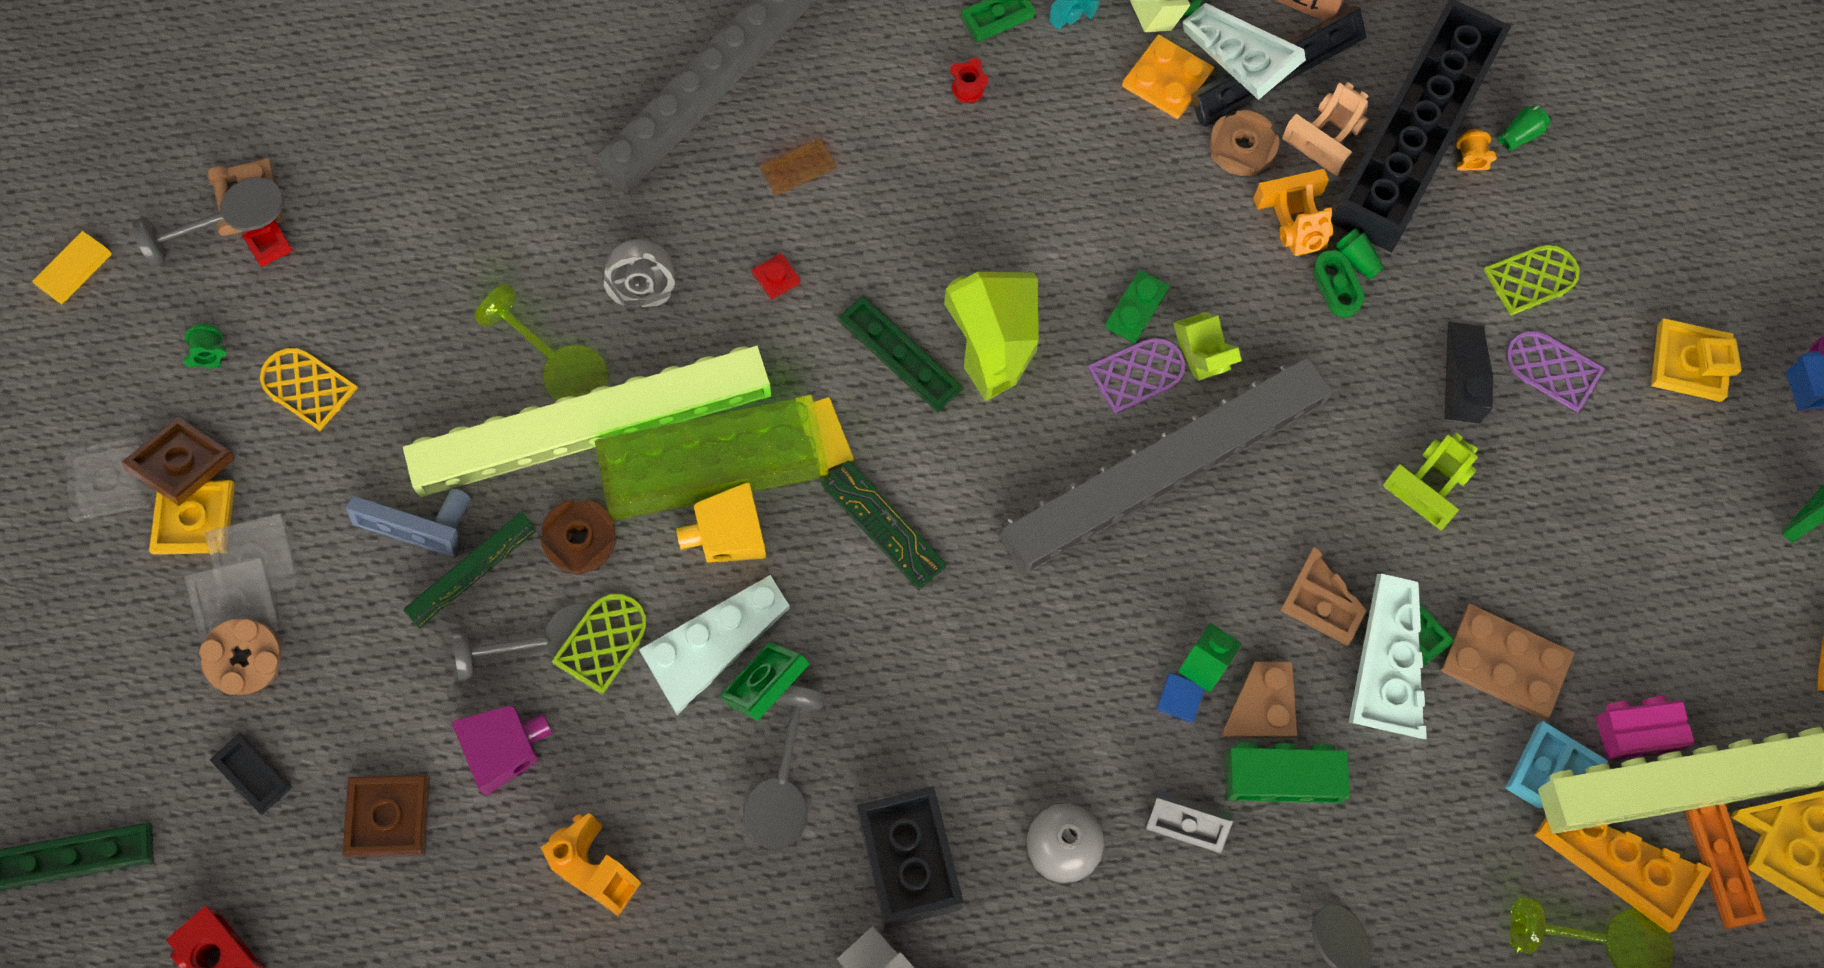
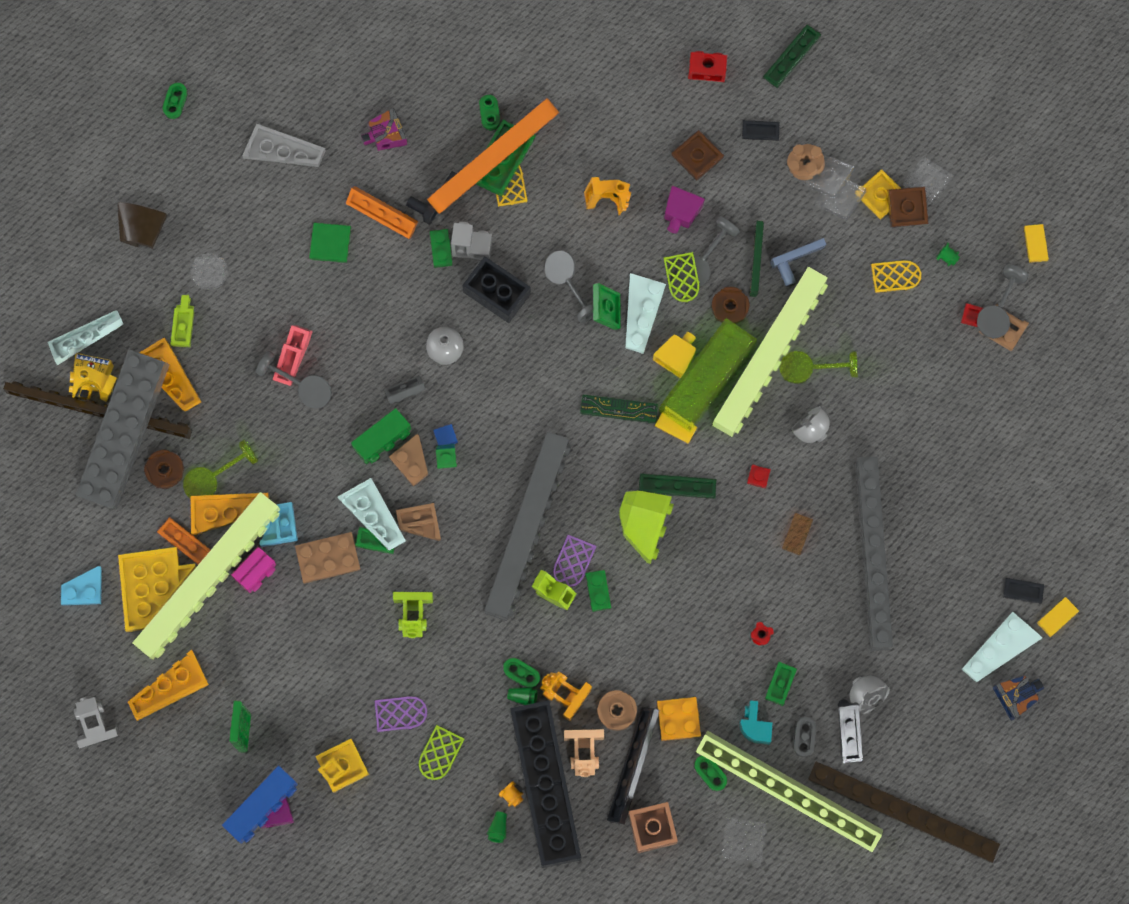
camera: 140 degrees right, 5 degrees up
(1243, 50) = (647, 747): light aqua wing -> none
(1467, 374) = (436, 676): black slope -> none

